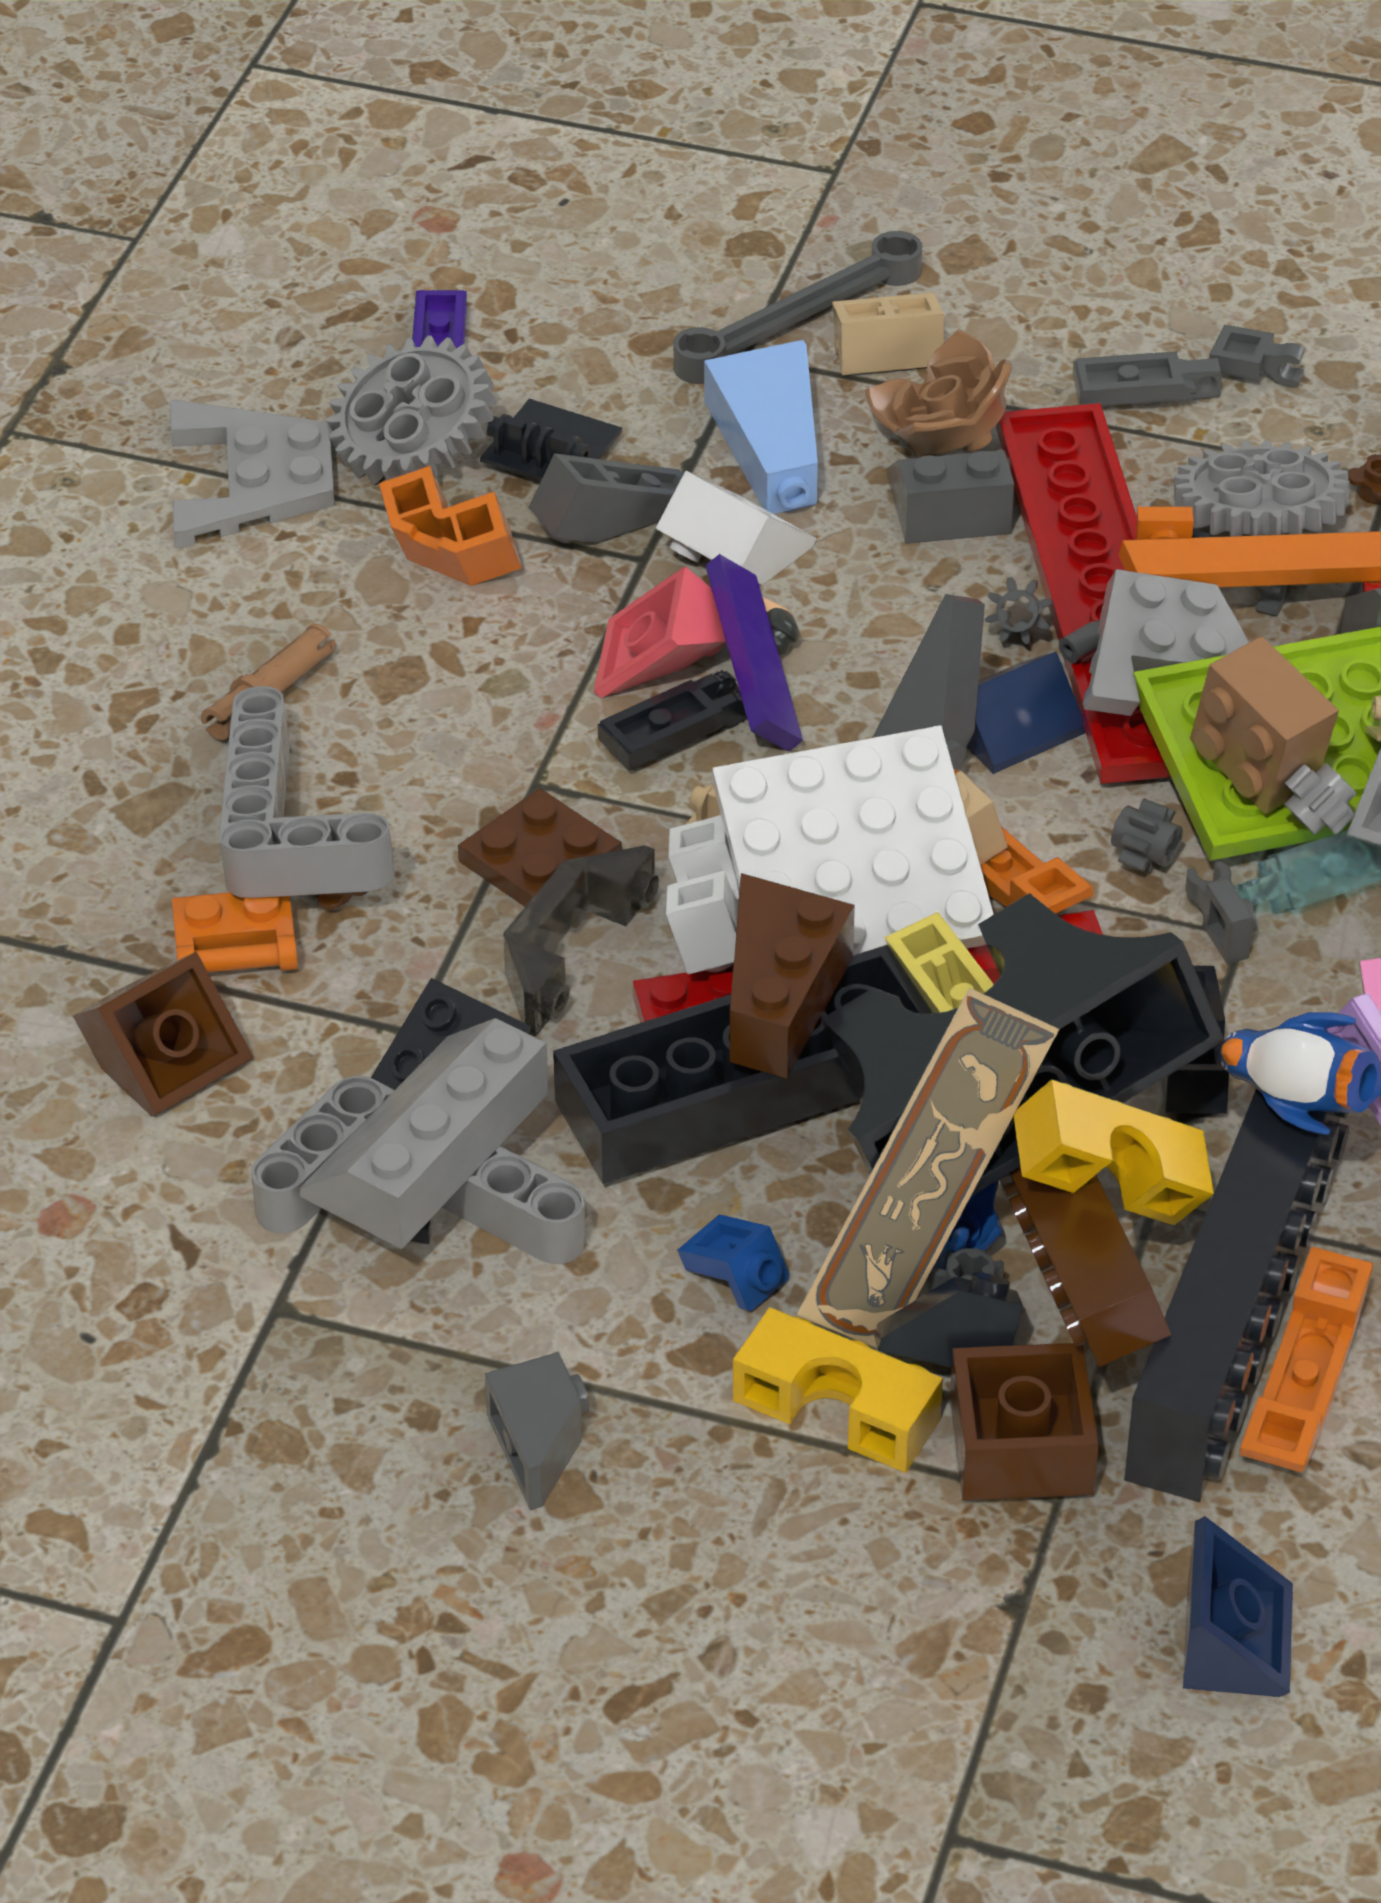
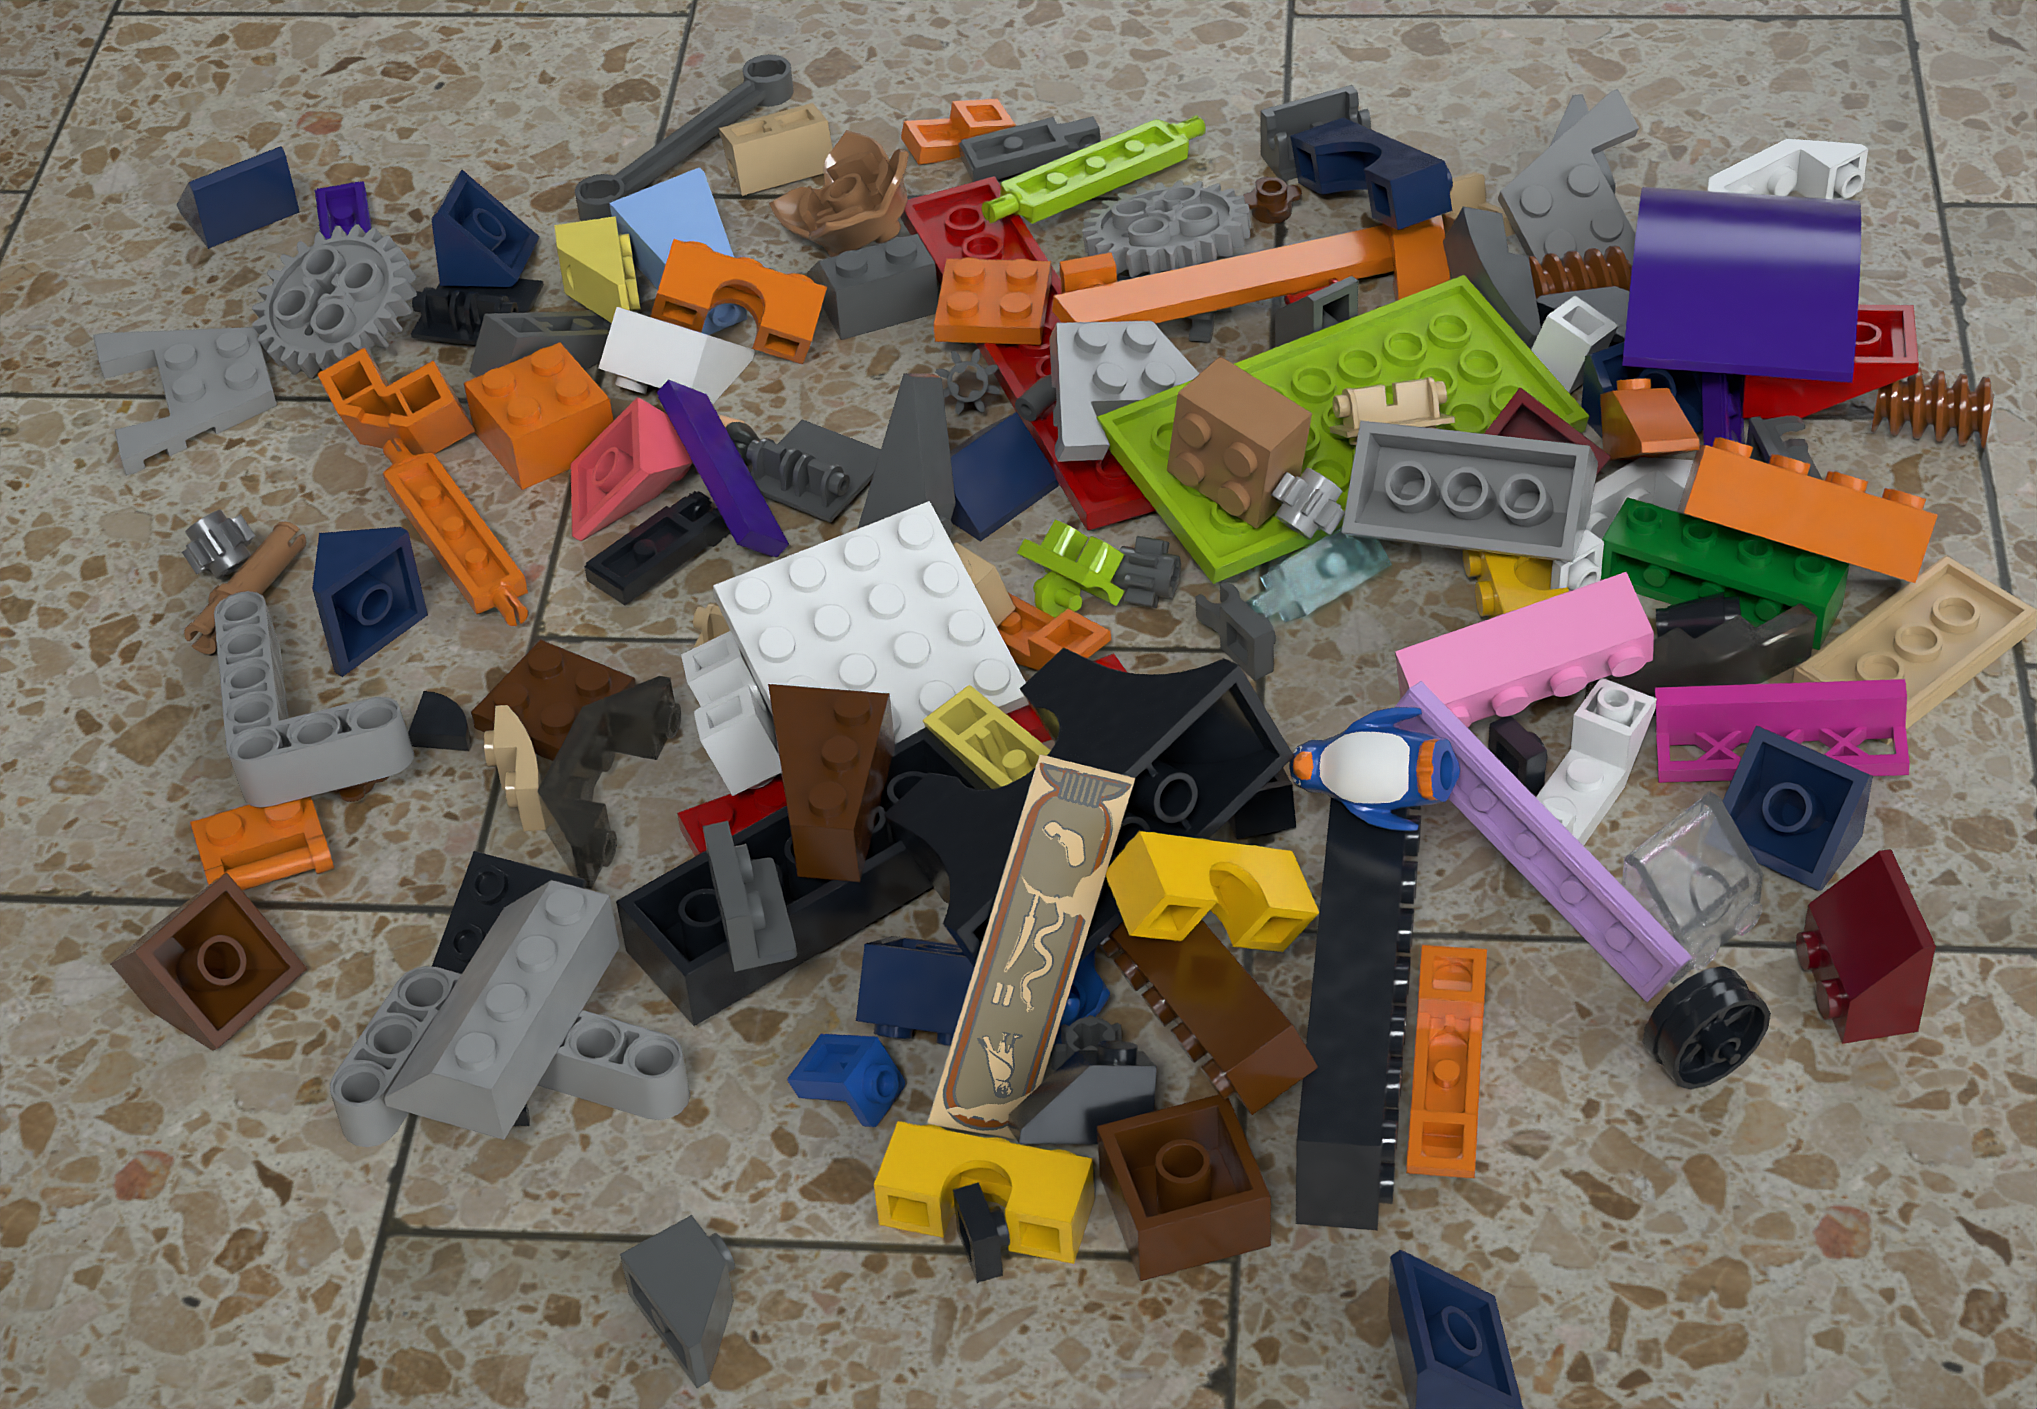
camera: 10 degrees left, 0 degrees up
(250, 634) = (218, 544): none -> flat silver gear
(340, 287) = (239, 198): none -> dark blue slope
(381, 709) = (365, 592): none -> dark blue slope
(425, 851) = (439, 724): none -> black tile
(480, 666) = (455, 532): none -> orange plate
(490, 910) = (517, 766): none -> tan slope
(567, 372) = (478, 238): none -> dark blue slope
(586, 563) = (537, 413): none -> orange brick
(676, 1076) = (748, 902): none -> dark grey bracket
(679, 423) = (597, 266): none -> light yellow slope
(776, 458) = (781, 303): none -> orange arch
(811, 1186) = (913, 987): none -> dark blue slope
(824, 1424) = (980, 1231): none -> black plate
(842, 669) = (812, 469): none -> dark grey hinge
(1054, 351) = (940, 138): none -> orange slope
(1064, 533) = (993, 301): none -> orange plate
(1074, 815) = (1065, 576): none -> lime hips
(1204, 415) = (1094, 170): none -> lime plate
(1250, 352) = (1122, 106): dark grey plate -> none

